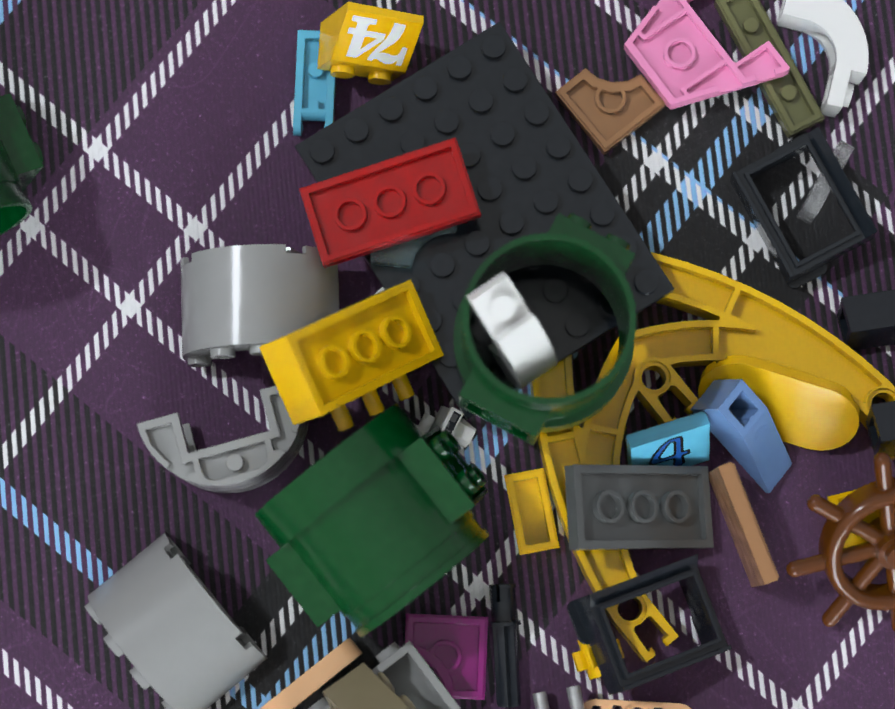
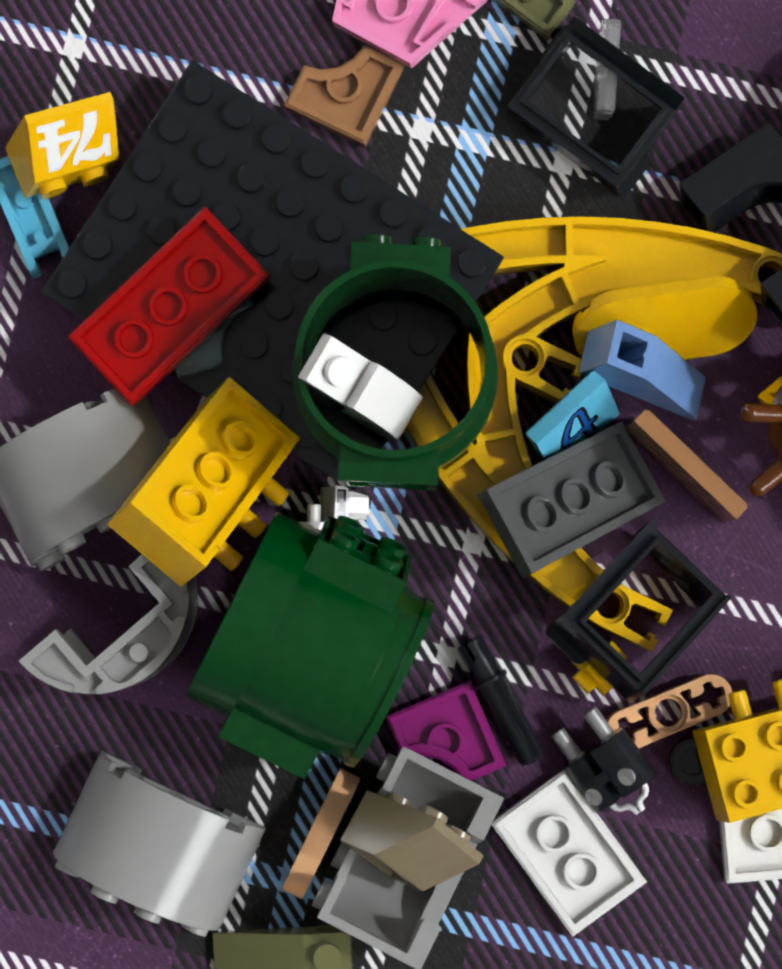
camera: 25 degrees left, 5 degrees up
(531, 511) = (464, 552): yellow tile -> none

